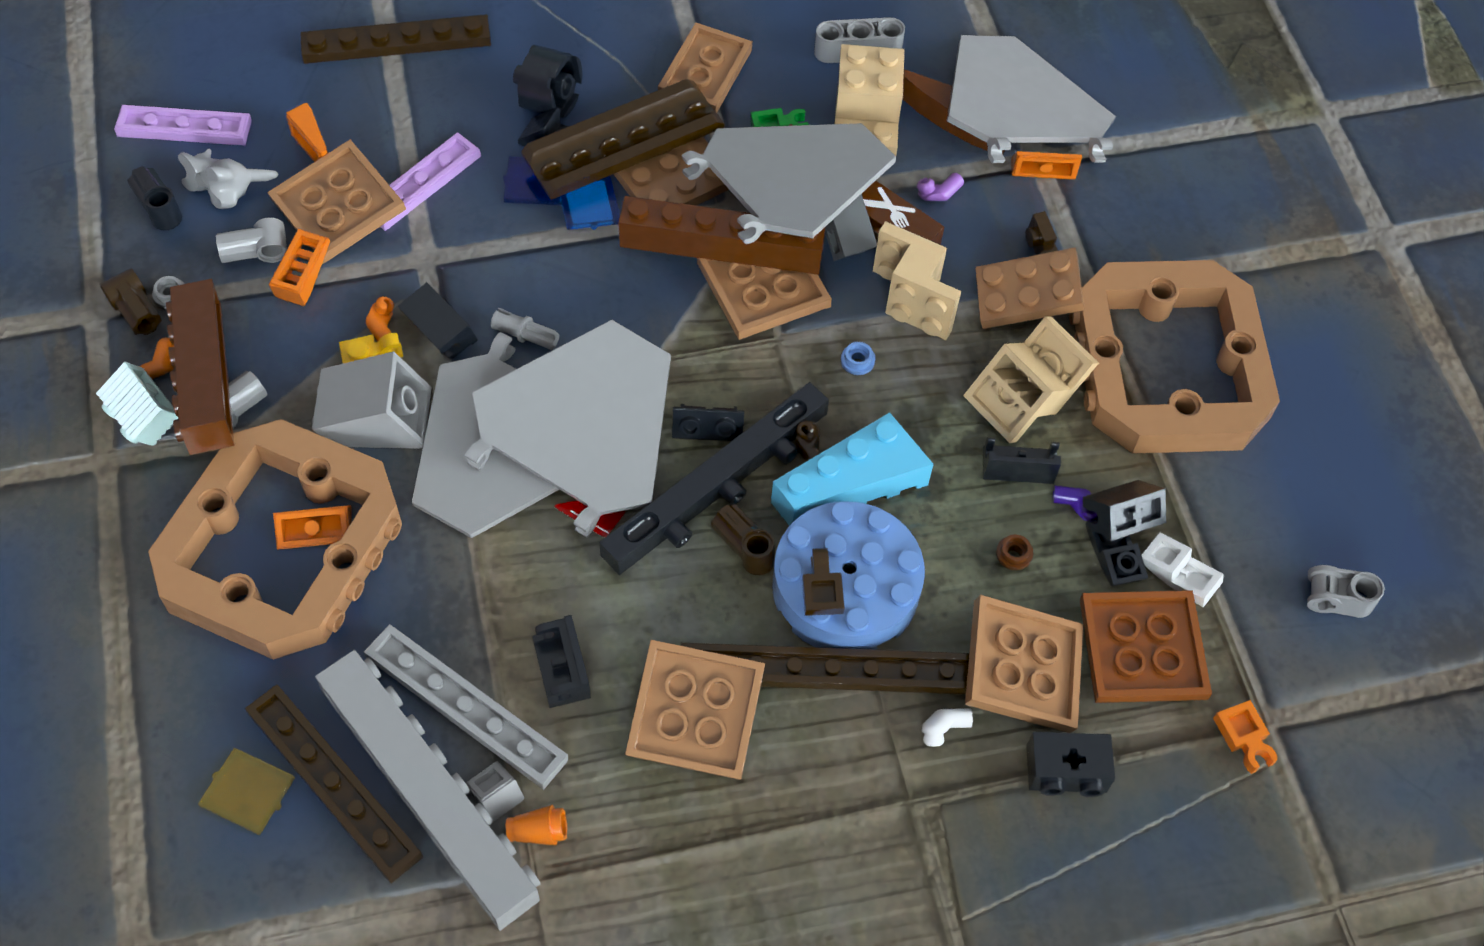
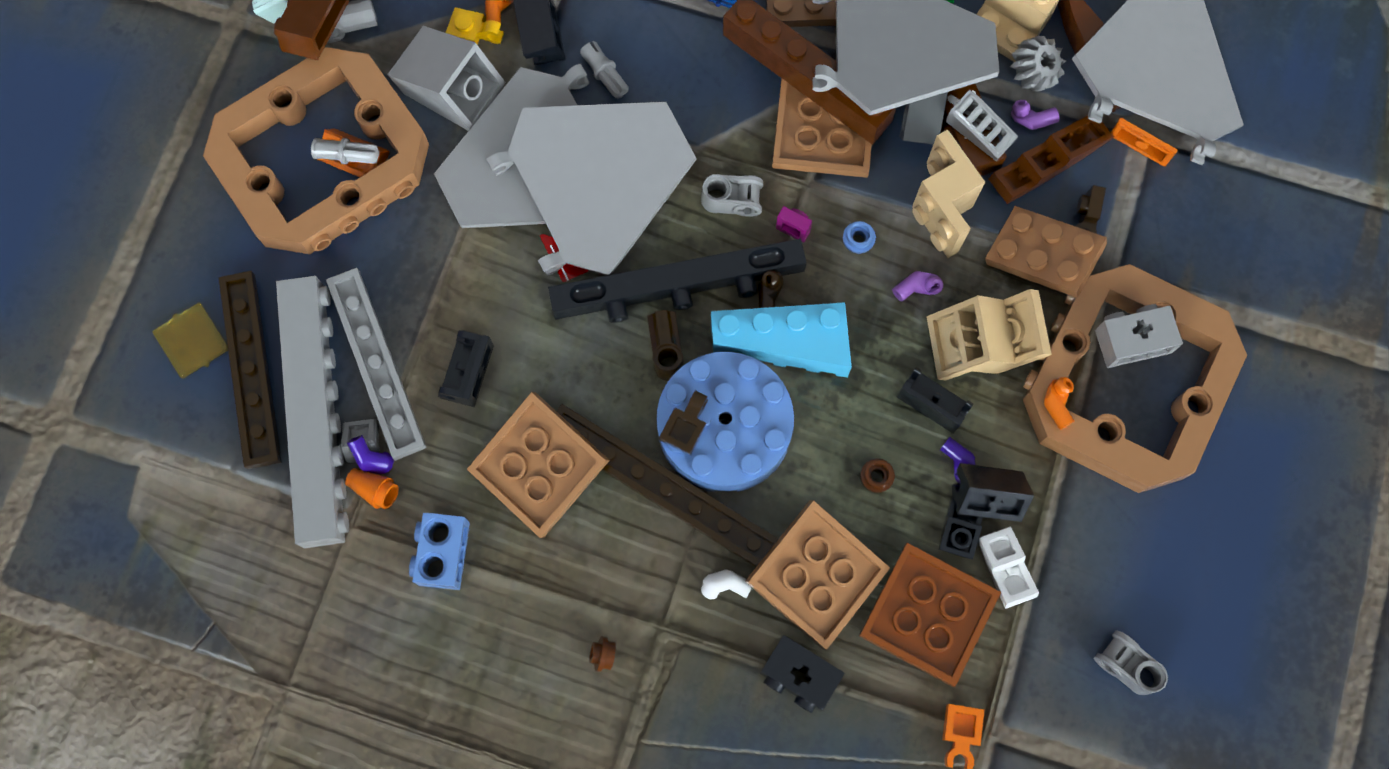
camera: 35 degrees right, 15 degrees up
(316, 514) = (344, 151): none -> light grey axle
(520, 799) = (369, 460): none -> dark purple arm
(656, 845) = (450, 551): none -> medium blue brick
(707, 424) = (690, 223): black hinge -> none
(723, 374) = (735, 194): none -> light grey piece
(792, 374) = (794, 223): none -> magenta plate
(874, 853) = (602, 654): none -> reddish brown plate
(898, 198) = (981, 110): none -> light grey slope
(916, 143) = (1038, 63): none -> light grey gear
(936, 371) = (920, 283): none -> medium lavender arm
(978, 214) = (1050, 158): none -> reddish brown slope
(1127, 399) = (1056, 400): none -> orange arm
(1158, 311) = (1121, 346): none -> light grey brick

